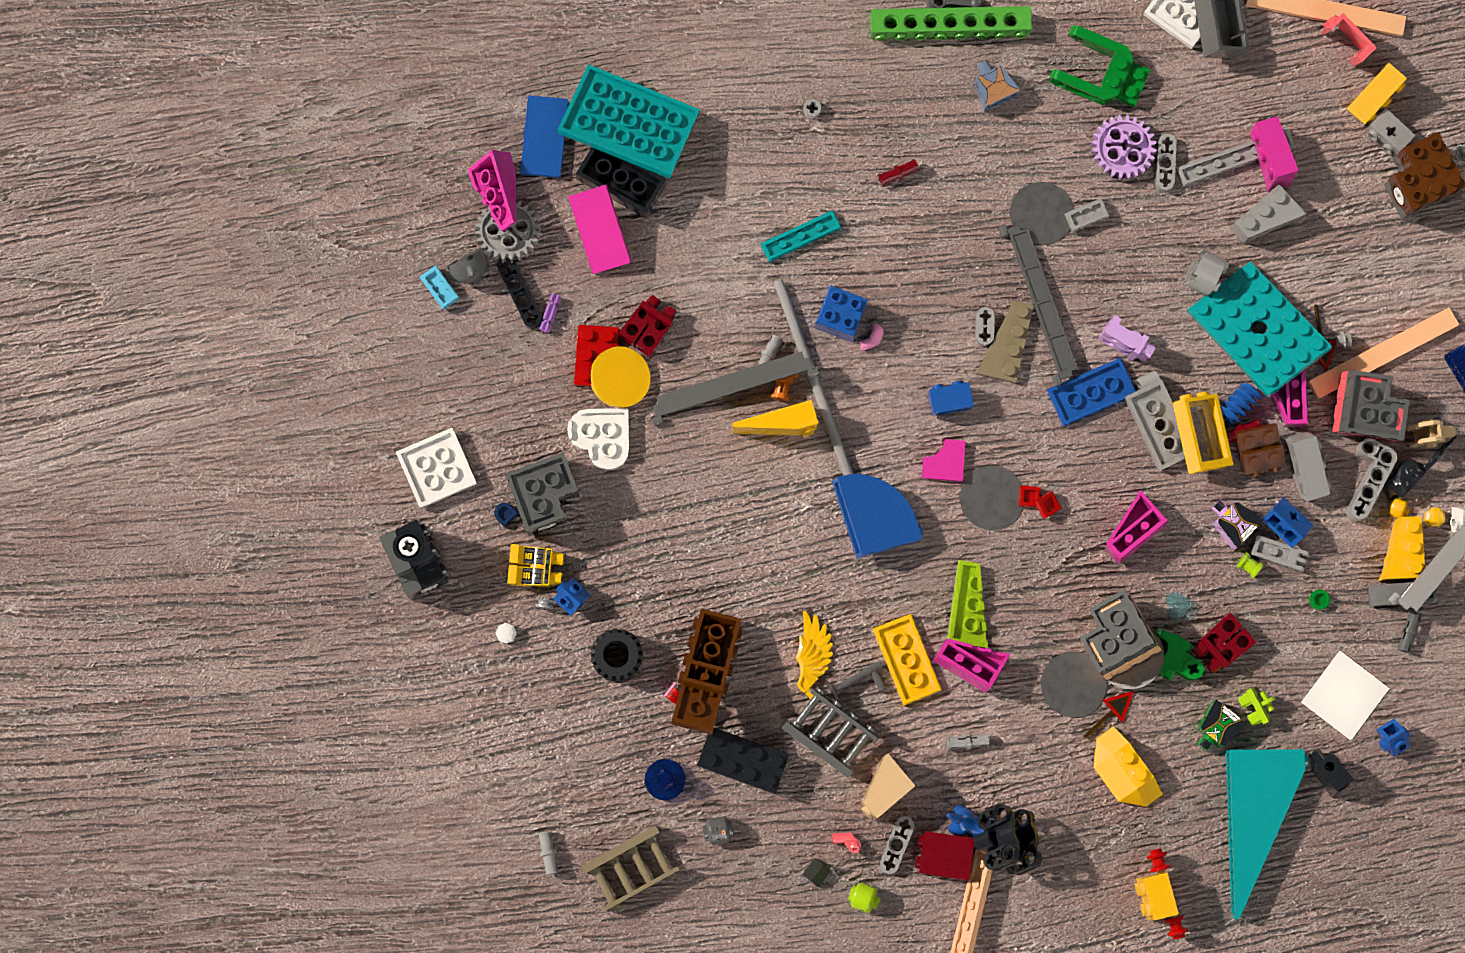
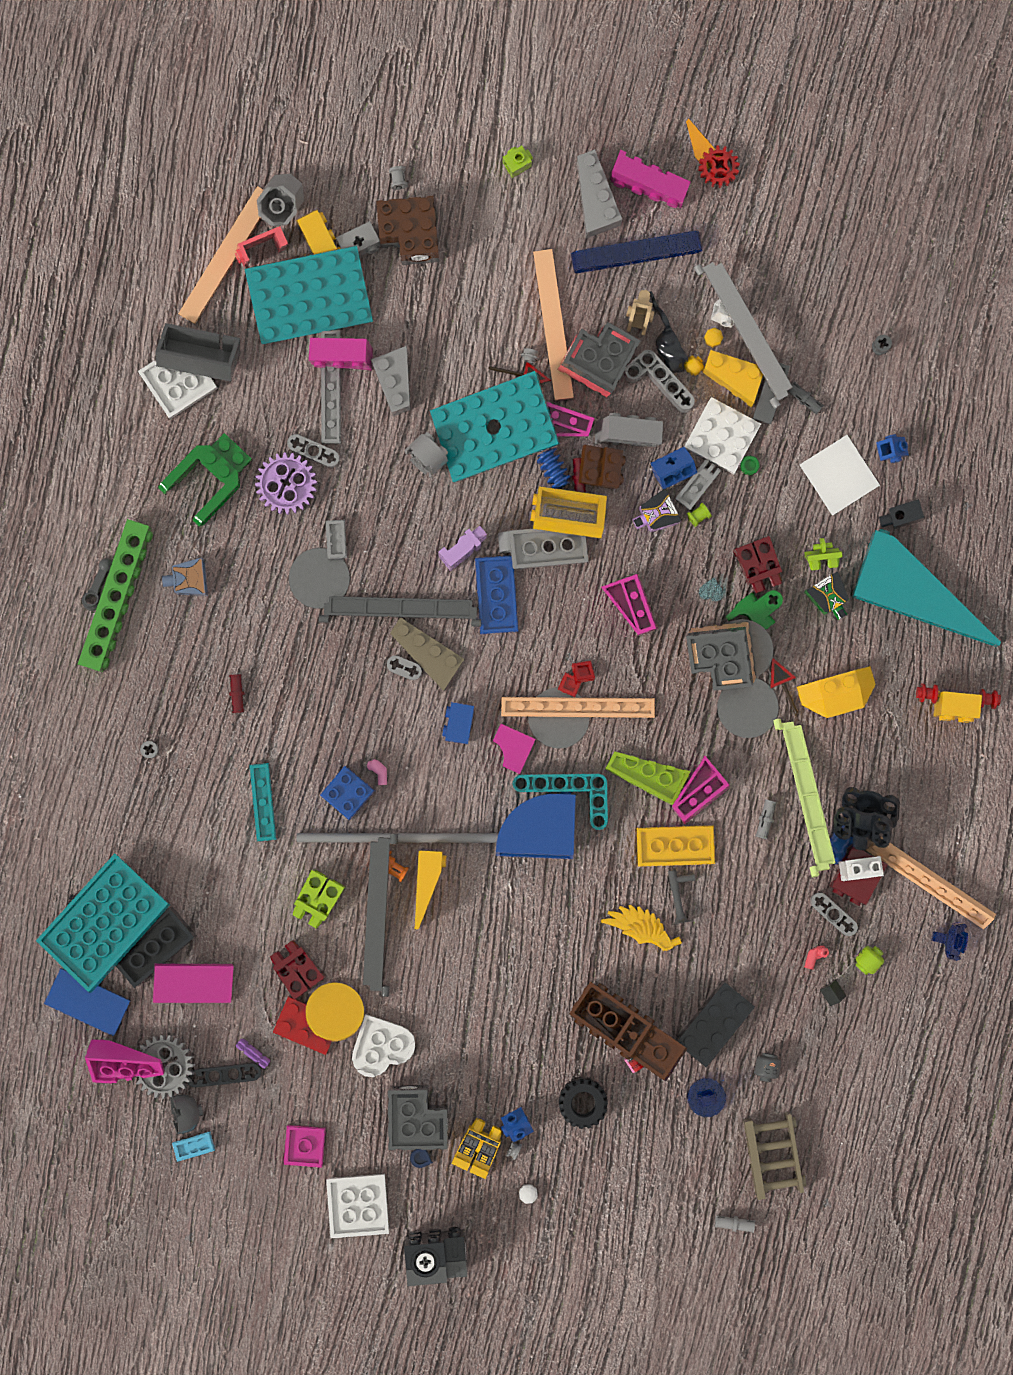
camera: 65 degrees left, 5 degrees up
(476, 396) = (304, 1146): none -> dark pink tile
(726, 322) = (313, 902): none -> lime hips
(771, 349) = (358, 867): light grey pin -> none
(828, 752) = (733, 946): dark grey fence -> none
(885, 788) = (783, 907): tan slope -> none
(935, 528) = (569, 787): none -> teal beam
(955, 846) = (861, 868): none -> white hips
(1008, 773) = (808, 796): none -> yellowish green piece
(1010, 512) = (578, 707): none -> light nougat tile
(1319, 102) = (309, 295): none -> teal plate
(1338, 561) = (722, 435): none -> white plate
(1402, 40) = (280, 200): none -> light grey brick

